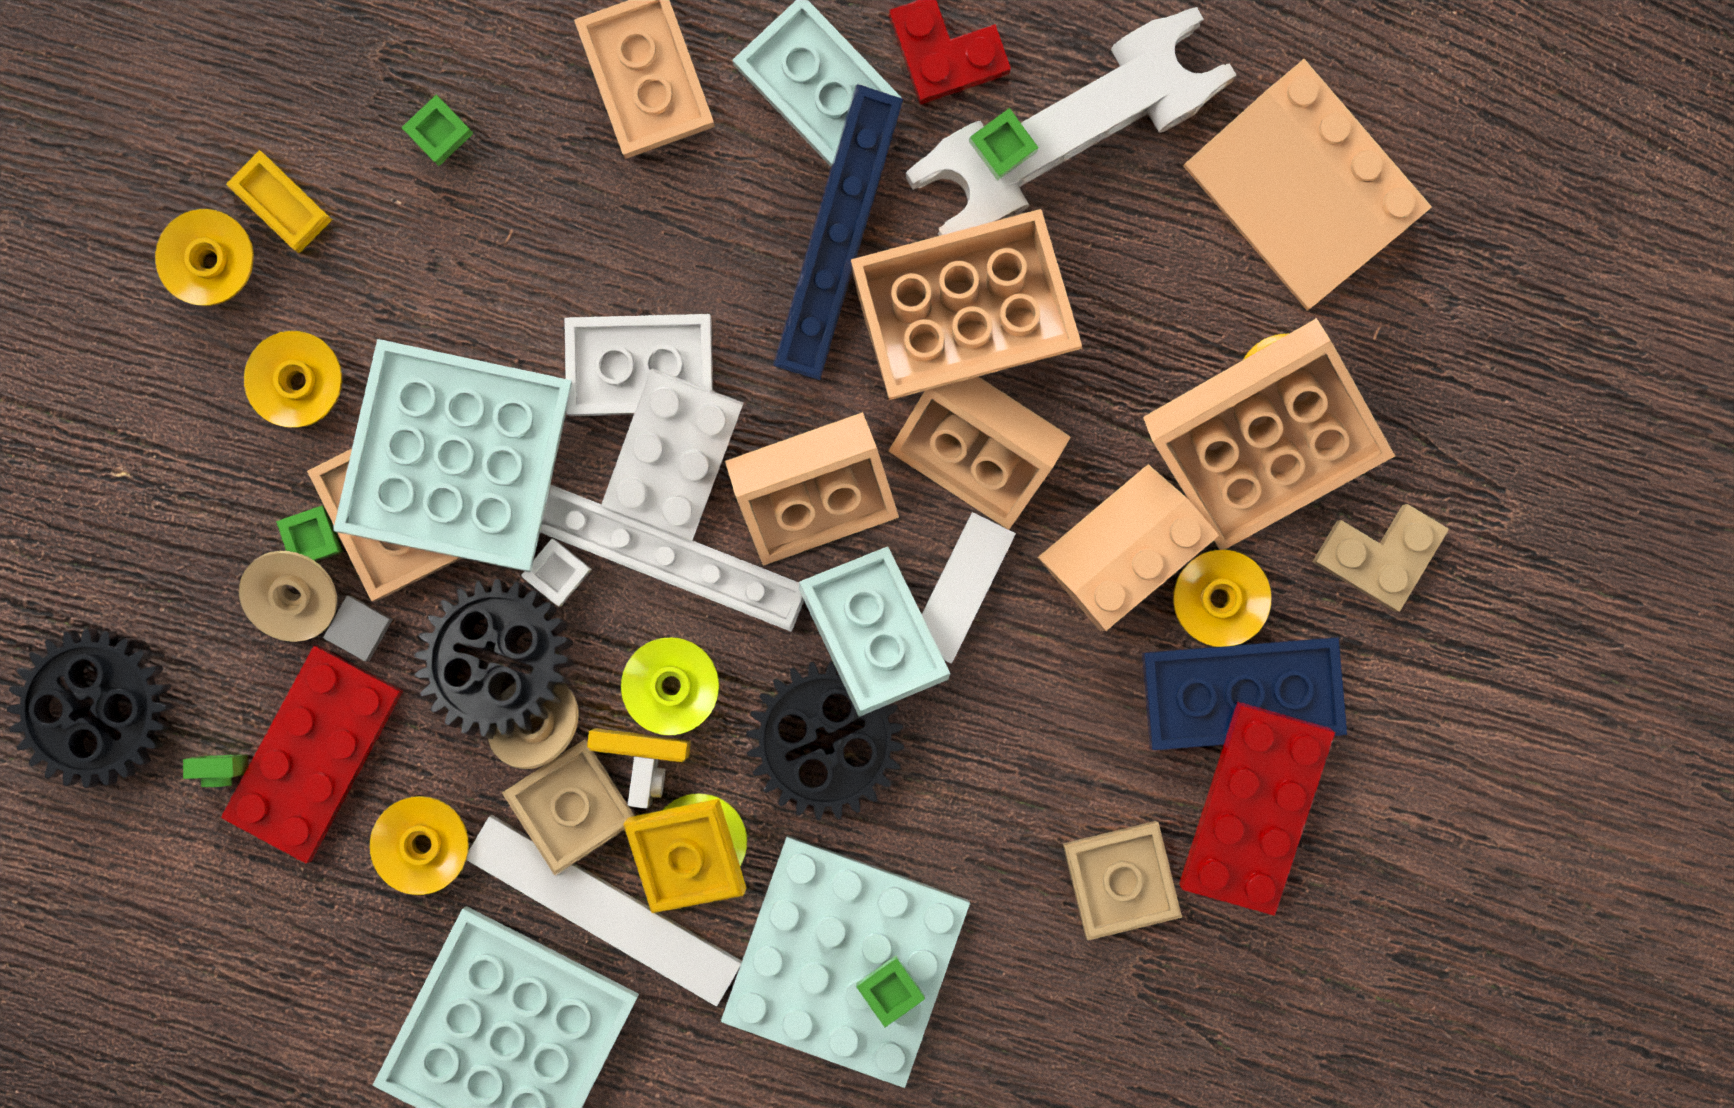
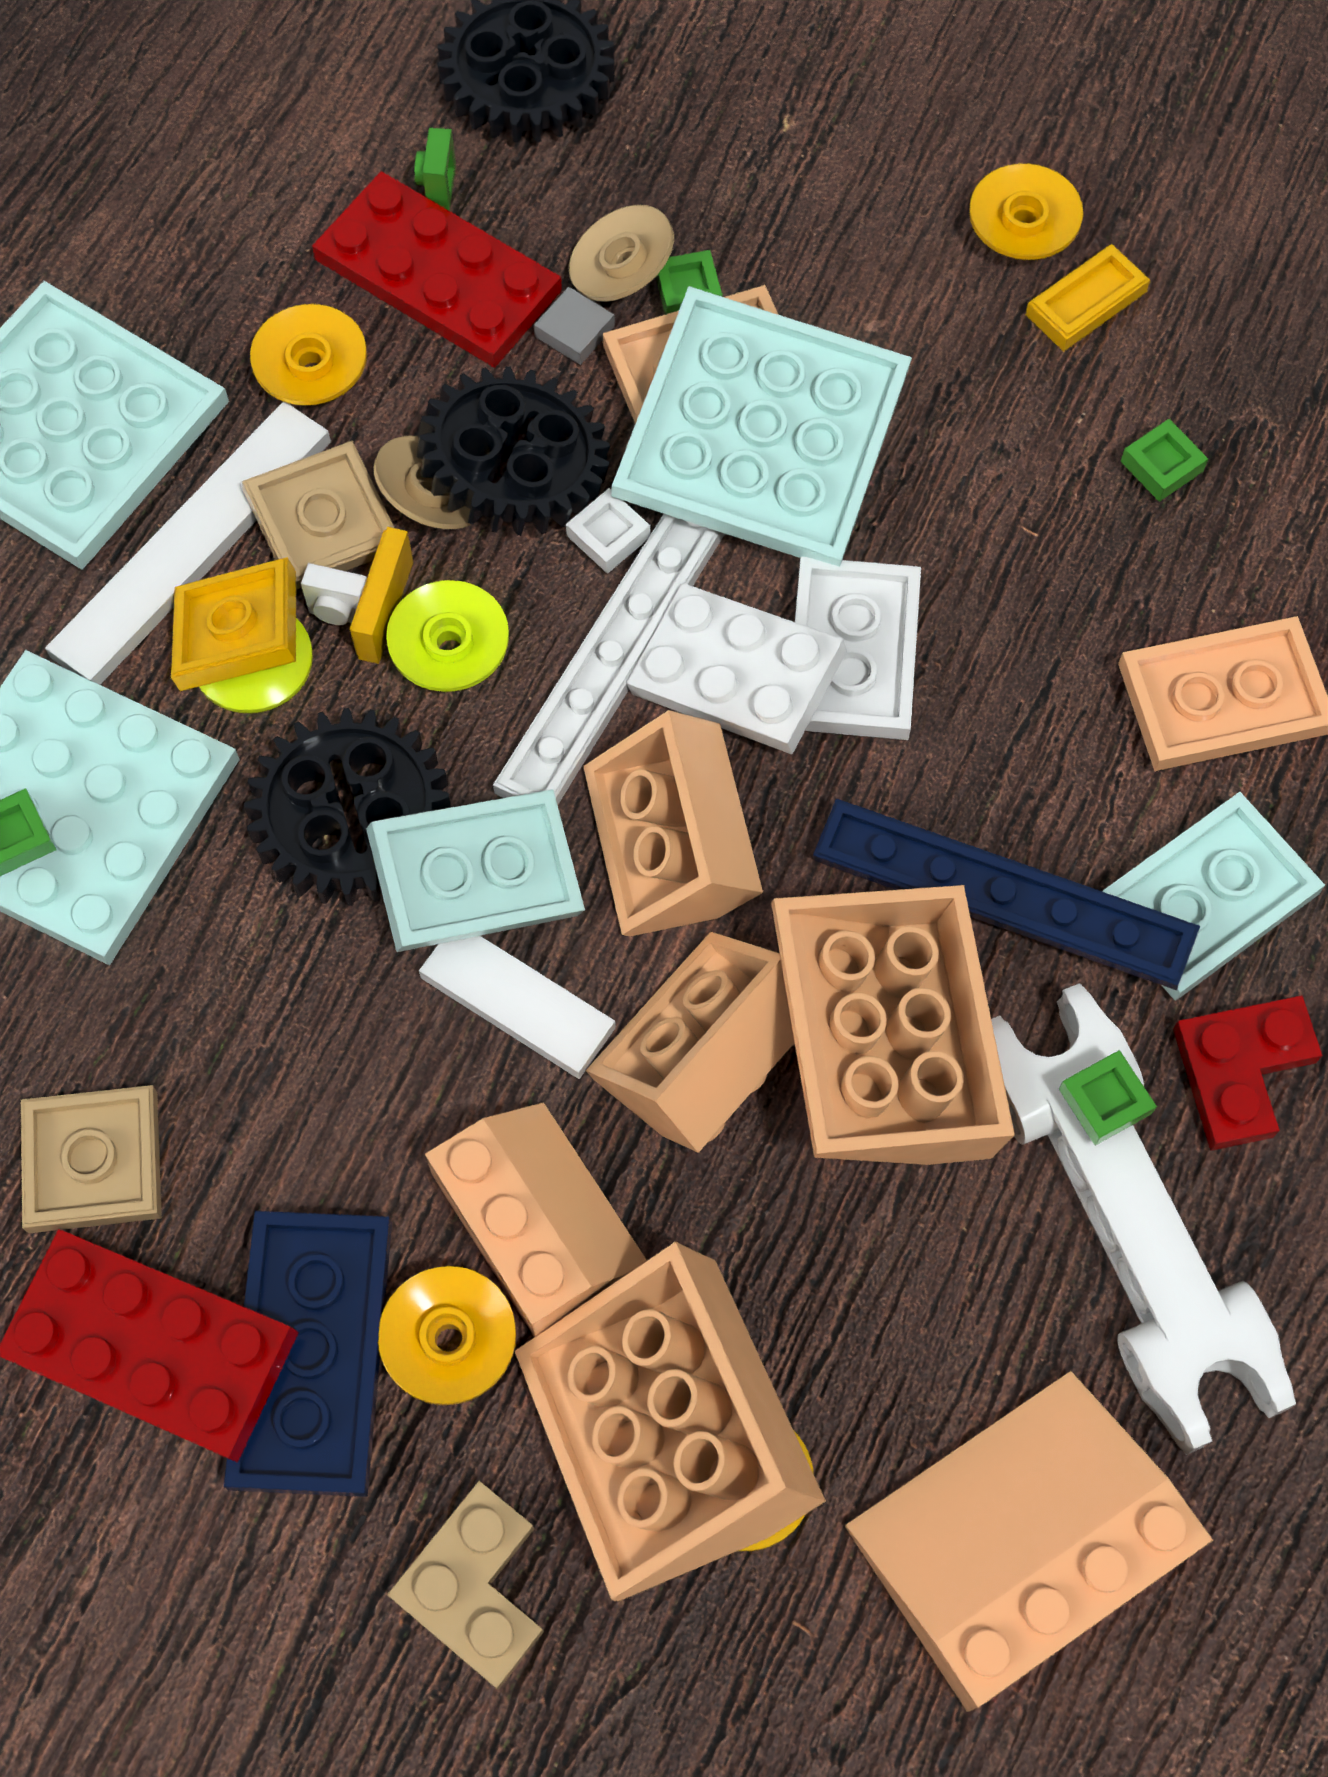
camera: 100 degrees right, 20 degrees down
(270, 375) = (878, 266): yellow dish -> none

